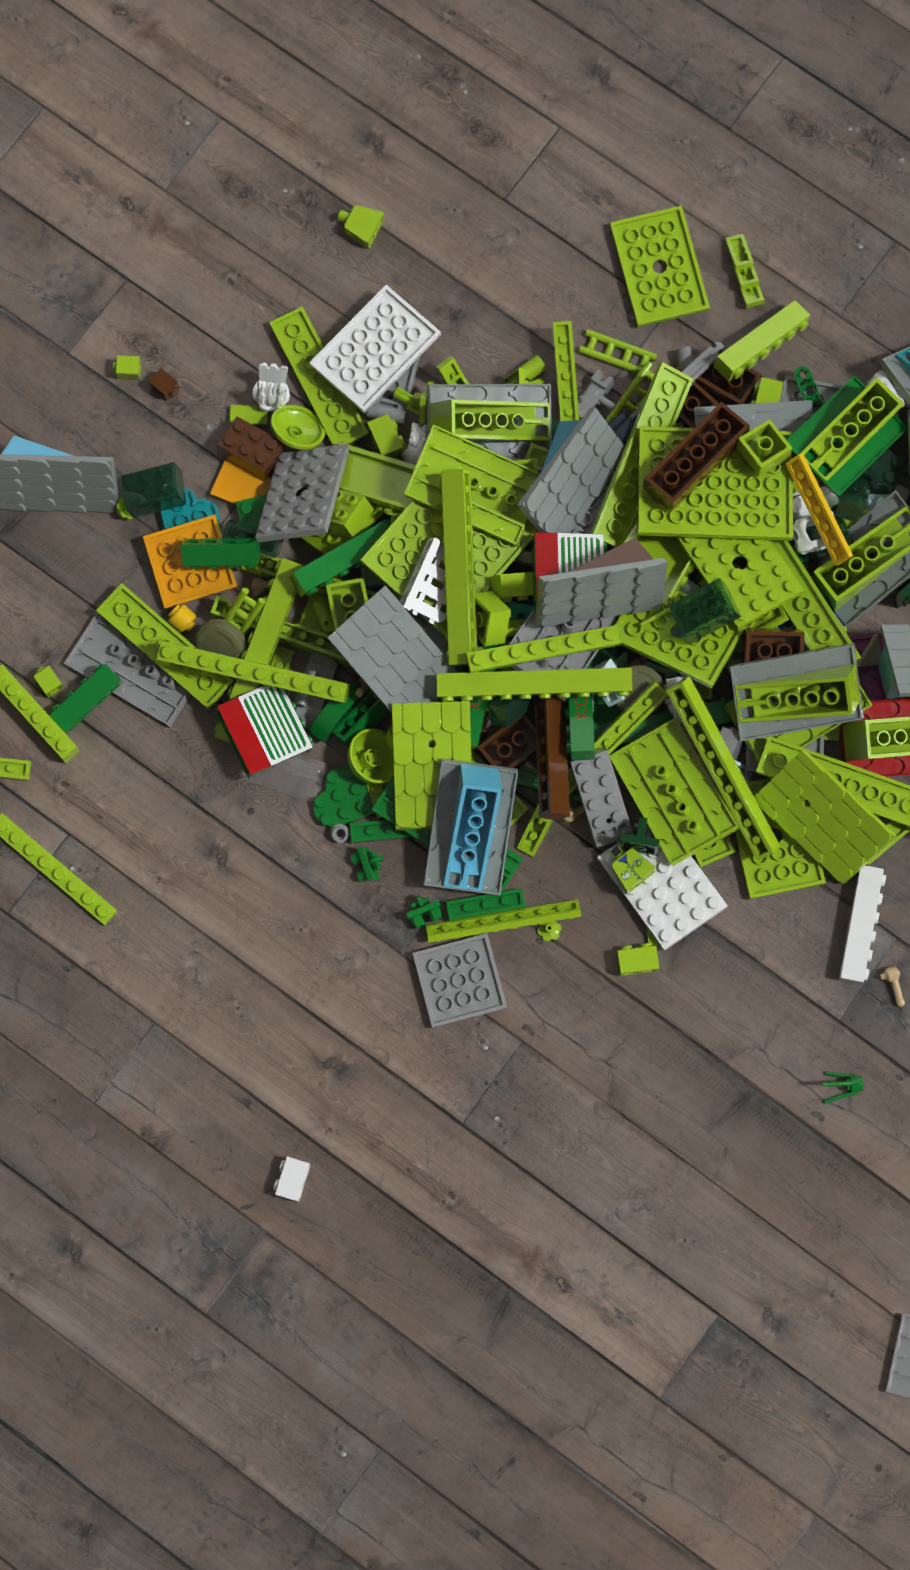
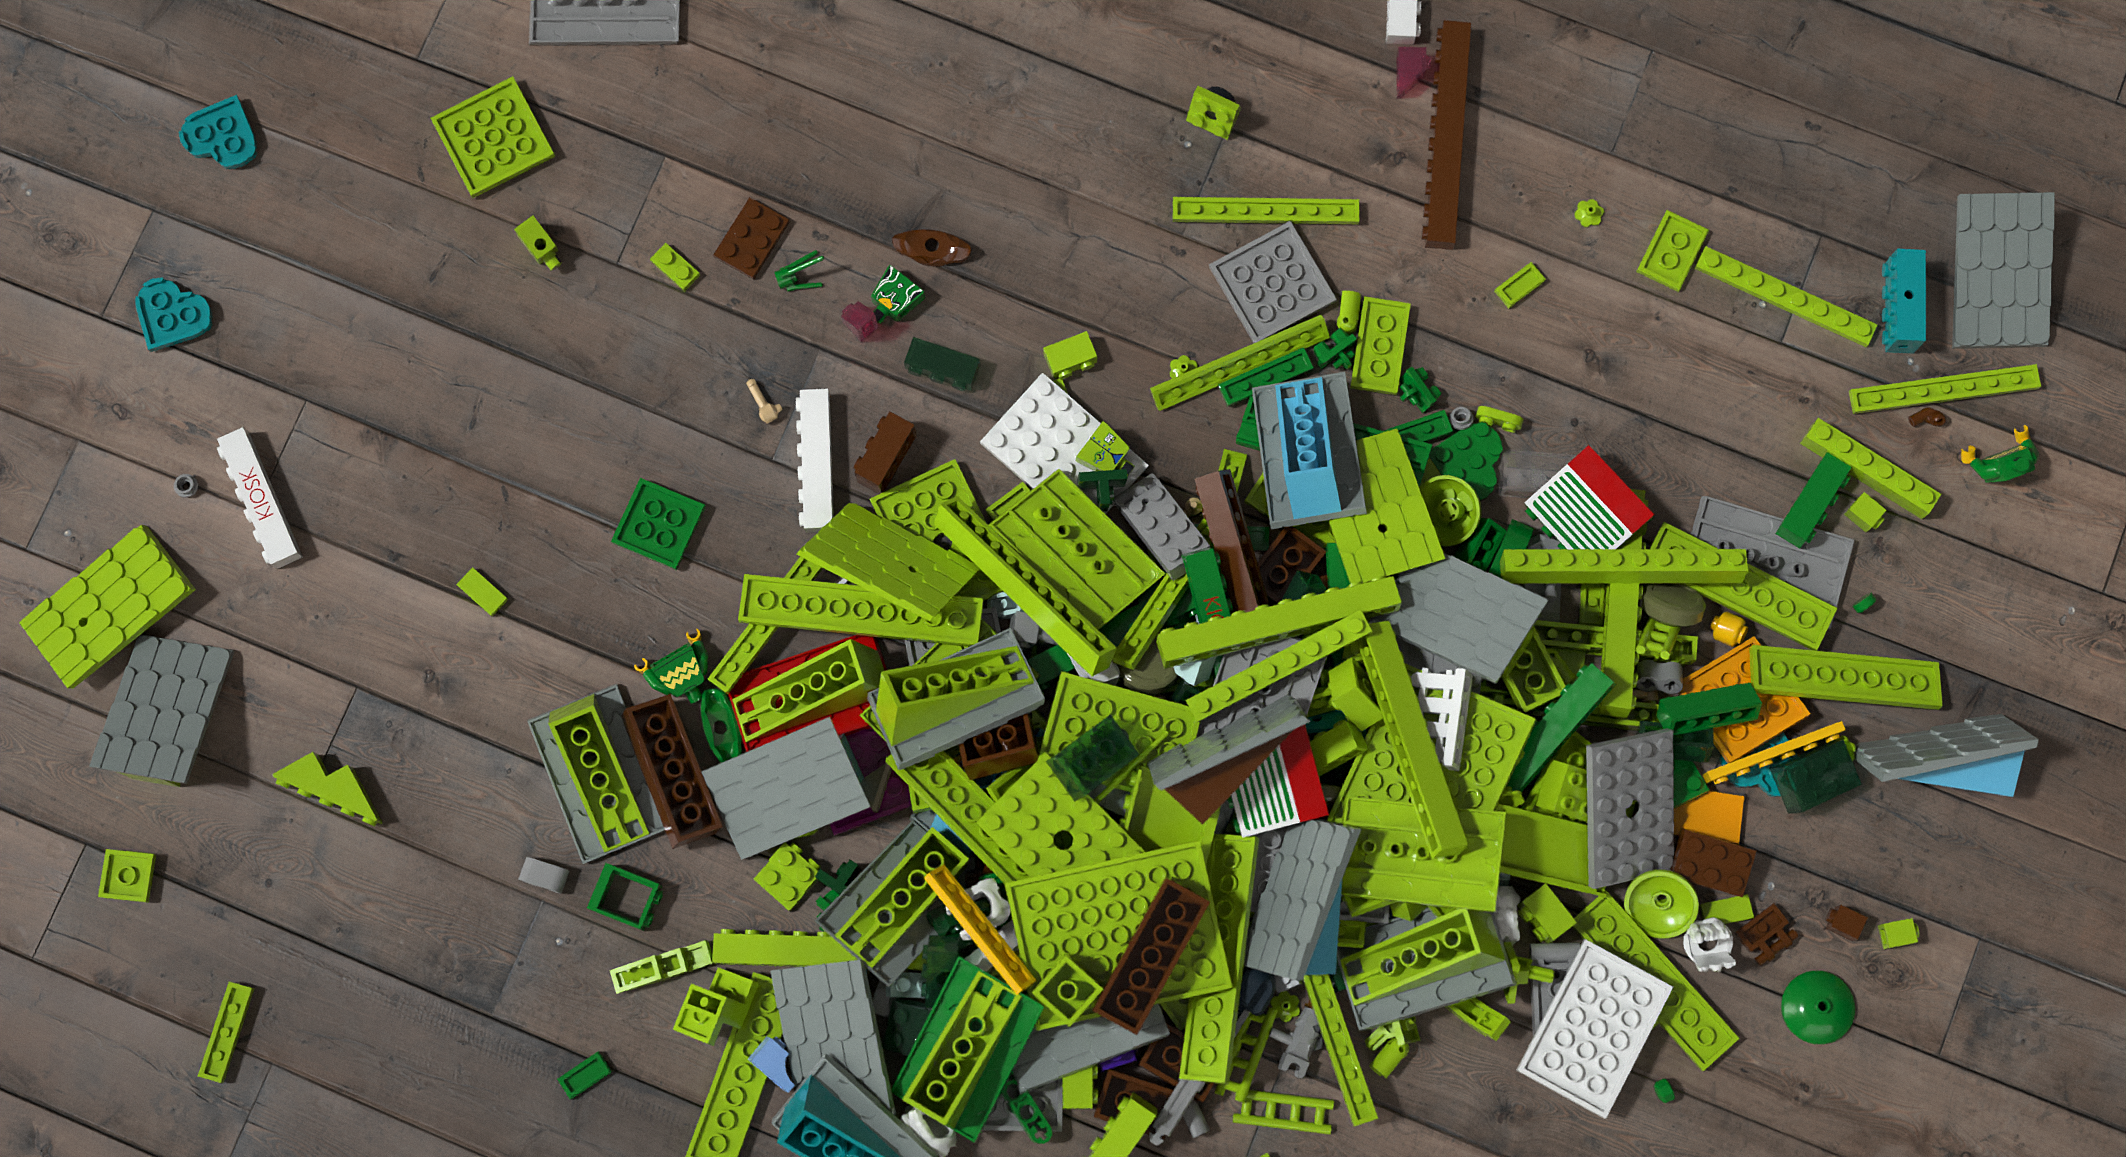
camera: 165 degrees right, 0 degrees up
(72, 613) = (1864, 602): none -> green tile
(107, 558) = (1845, 677): none -> lime plate
(130, 929) = (1672, 250): none -> lime tile
(171, 514) = (1765, 757): none -> yellow plate
(189, 982) = (1589, 217): none -> lime plant
(206, 343) = (1801, 1008): none -> green dish
(225, 396) = (1762, 928): none -> reddish brown plate
(255, 590) = (1659, 676): none -> light grey axle
(261, 931) = (1520, 285): none -> lime tile
(283, 1069) = (1447, 135): none -> reddish brown brick
(297, 1133) = (1410, 68): none -> clear pink slope
(304, 820) = (1508, 421): none -> lime plate
(335, 299) = (1664, 1090): none -> green tile
(387, 907) = (1380, 345): none -> lime plate
(404, 940) = (1349, 311): none -> lime piece
(449, 1042) = (1265, 210): none -> lime plate
(469, 1135) = (1213, 110): none -> lime piece
(714, 1073) = (949, 251): none -> reddish brown piece
(743, 978) = (942, 364): none -> clear green brick
(768, 1044) = (895, 296): none -> green torso
(803, 1030) = (859, 320): none -> clear pink slope
(806, 913) = (885, 452): none -> reddish brown brick
(875, 1126) = (751, 238): none -> reddish brown plate

